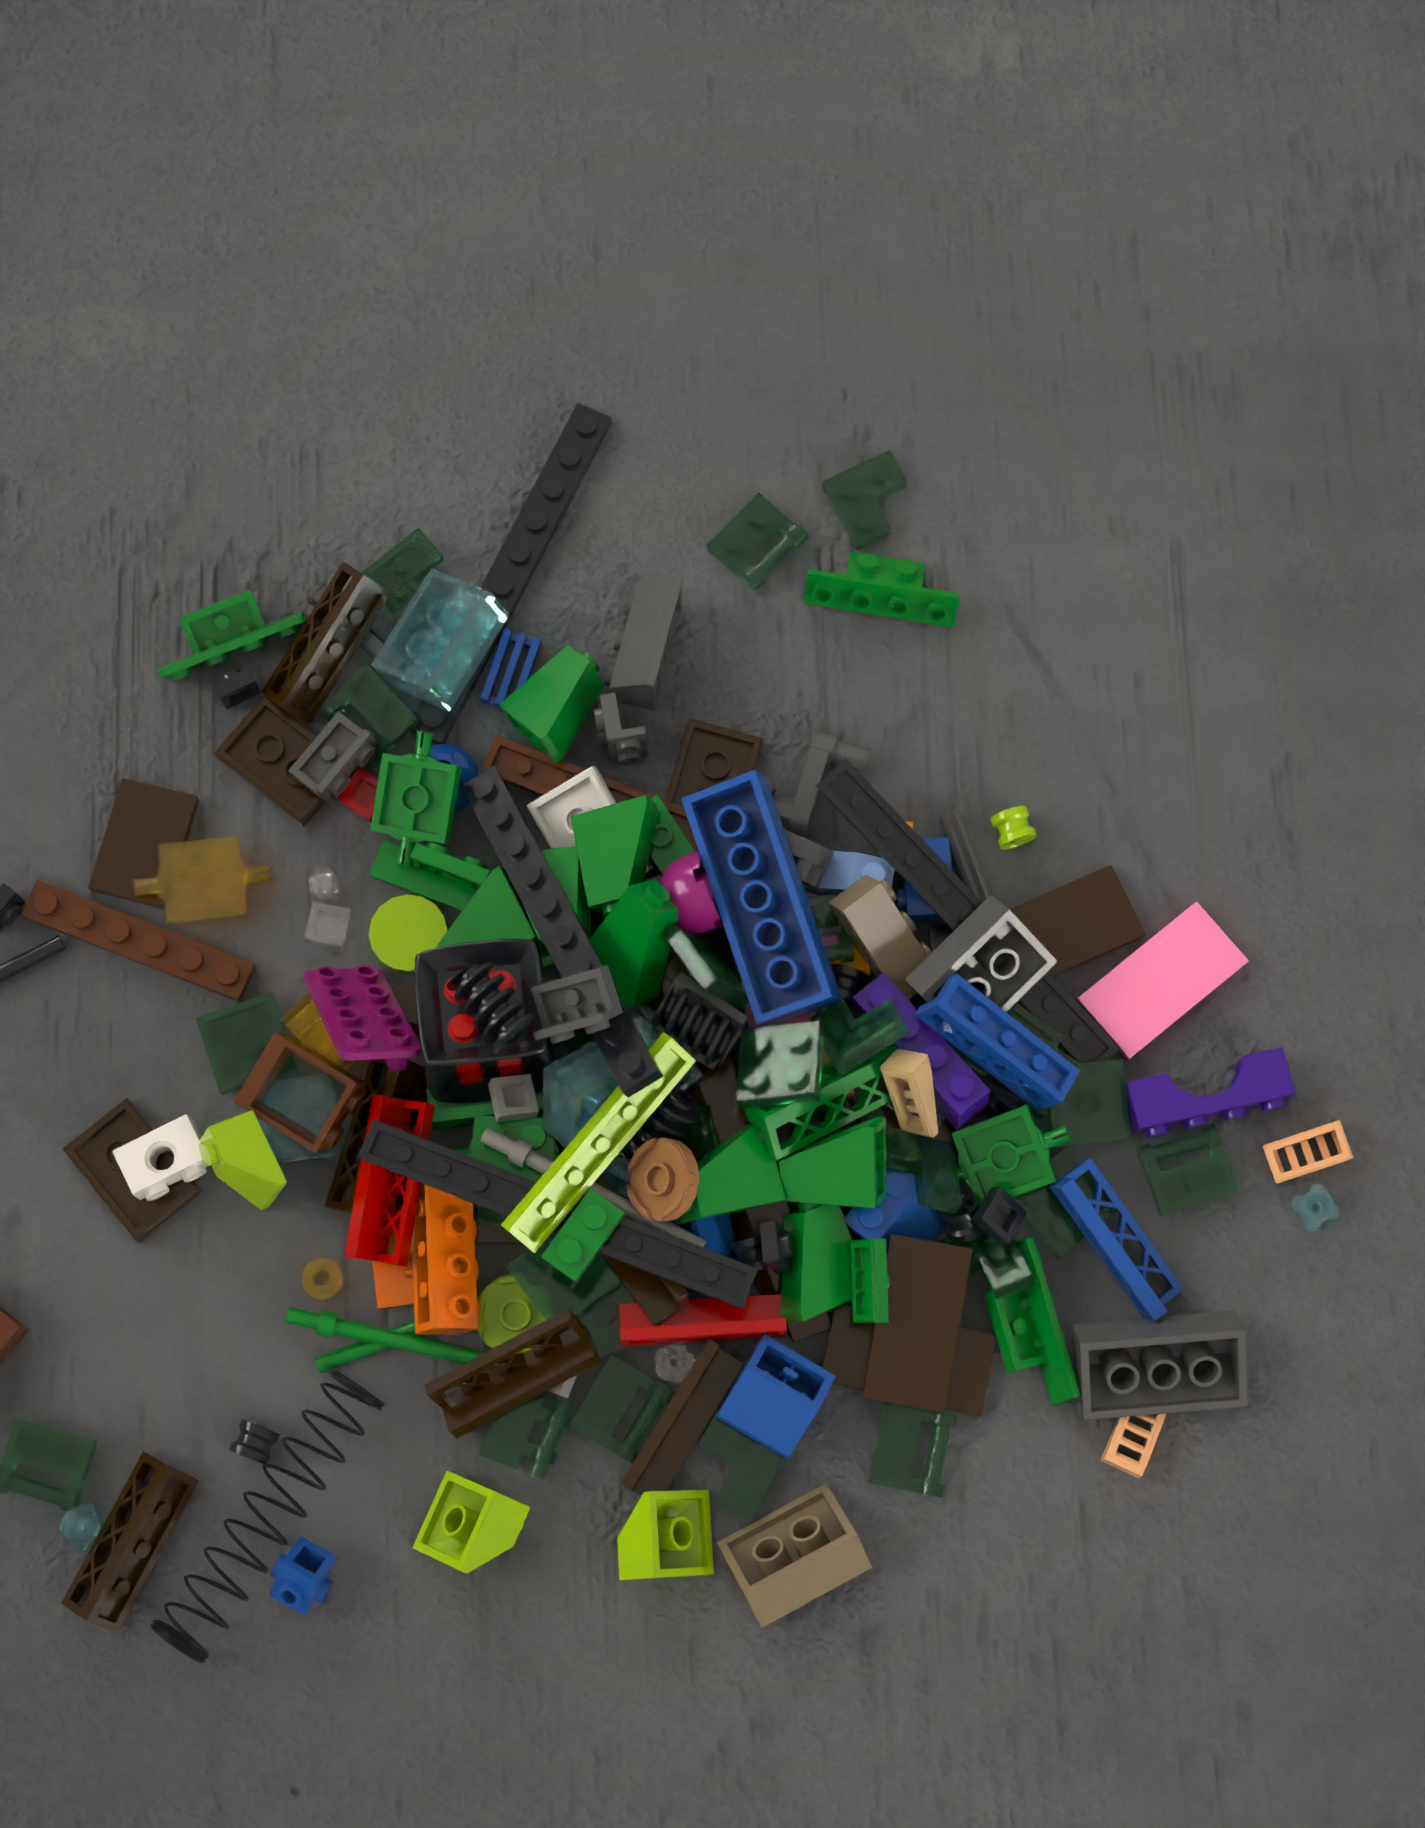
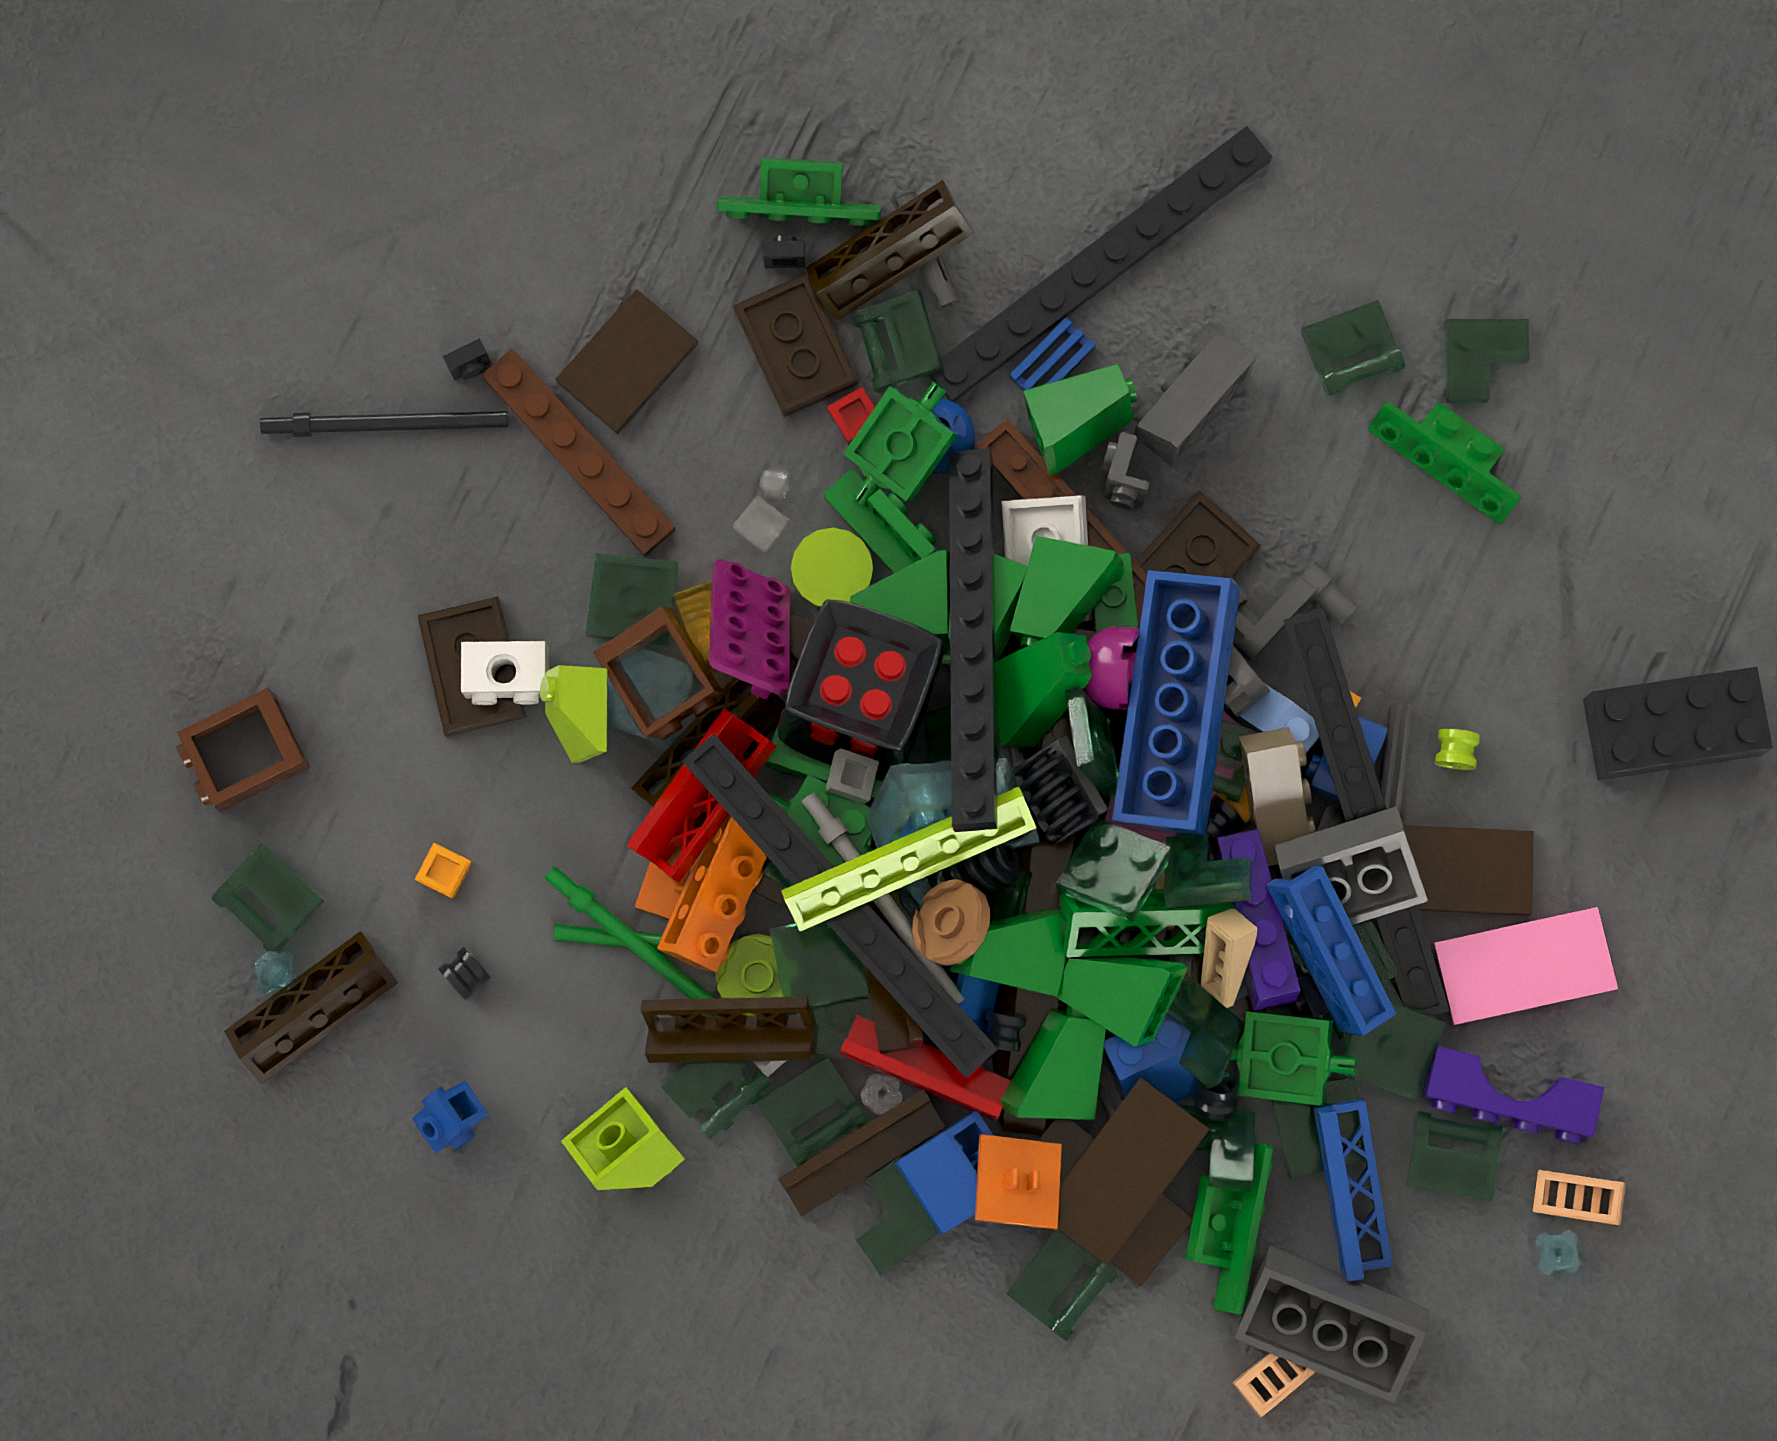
camera: 30 degrees right, 5 degrees up
(182, 1640) = (315, 1119): black piece -> none
(192, 1361) = (443, 871): none -> light orange tile
(202, 880) = (664, 424): clear yellow plate -> none
(328, 1290) = (597, 867): clear yellow plate -> none
(333, 757) = (842, 366): dark grey bracket -> none
(402, 568) = (989, 215): clear green plate -> none
(440, 639) = (998, 302): clear light blue brick -> none
(490, 1006) = (869, 684): black piece -> none
(575, 1003) = (949, 721): dark grey bracket -> none
(583, 1235) = (852, 937): green plate -> none
(667, 1536) = (796, 1249): lime slope -> none
(777, 1247) = (1027, 1036): black plate -> none
(794, 1555) = (904, 1324): dark tan slope -> none
(831, 1378) = (1018, 1182): none -> orange piece
(869, 1281) = (1098, 1110): green plate -> none
(999, 1216) = (1251, 1111): black plate -> none
(1182, 718) = (1677, 723): none -> black brick

